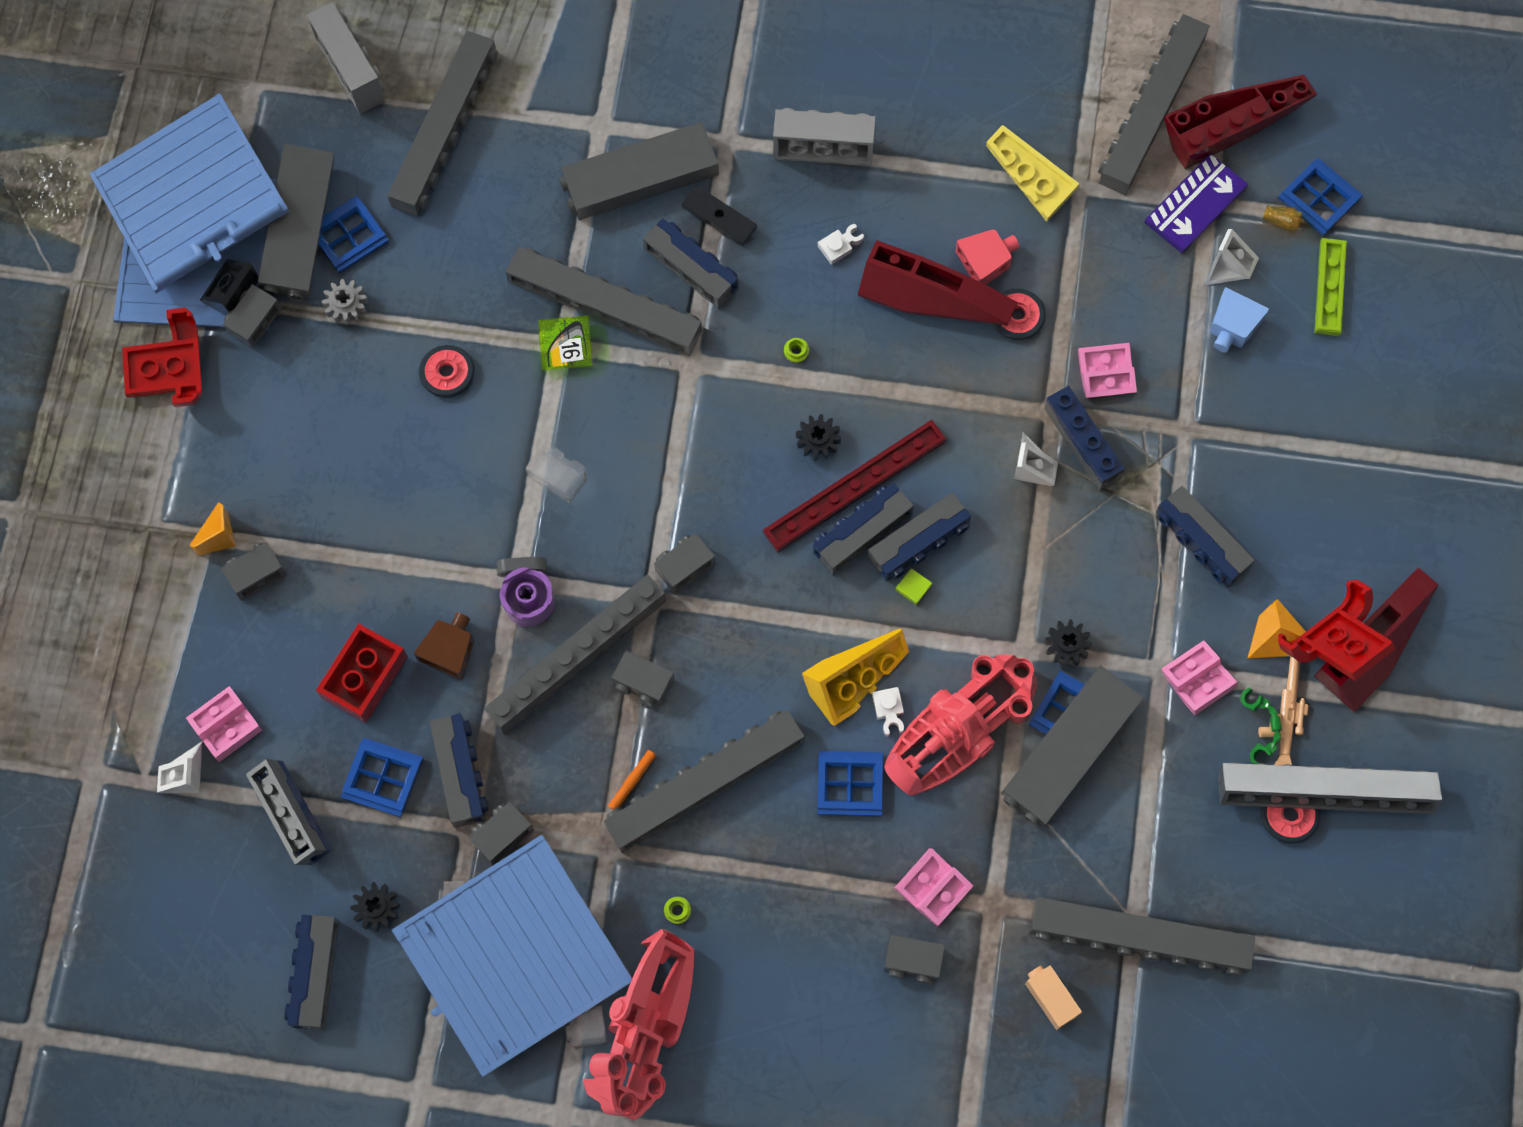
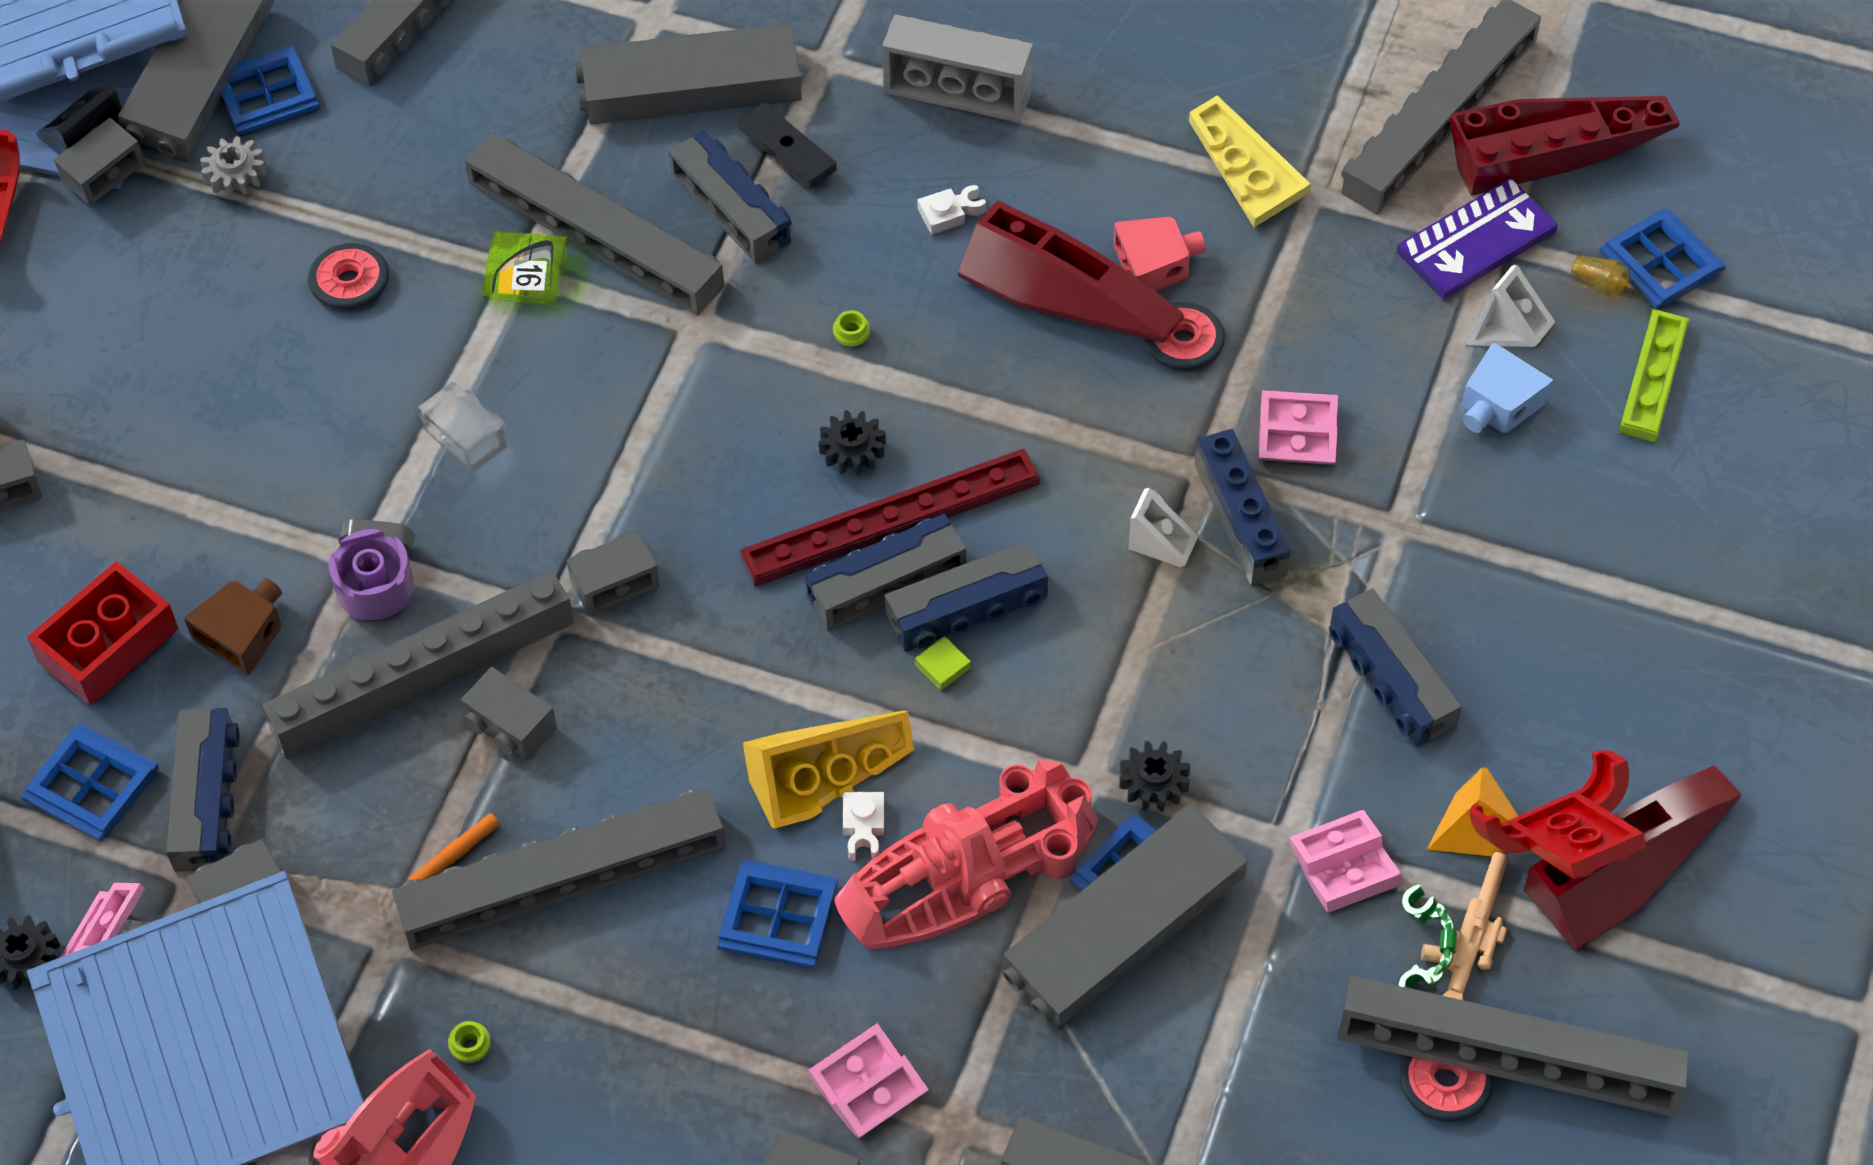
camera: 10 degrees right, 15 degrees down
(423, 880) = (105, 916): none -> bright pink slope

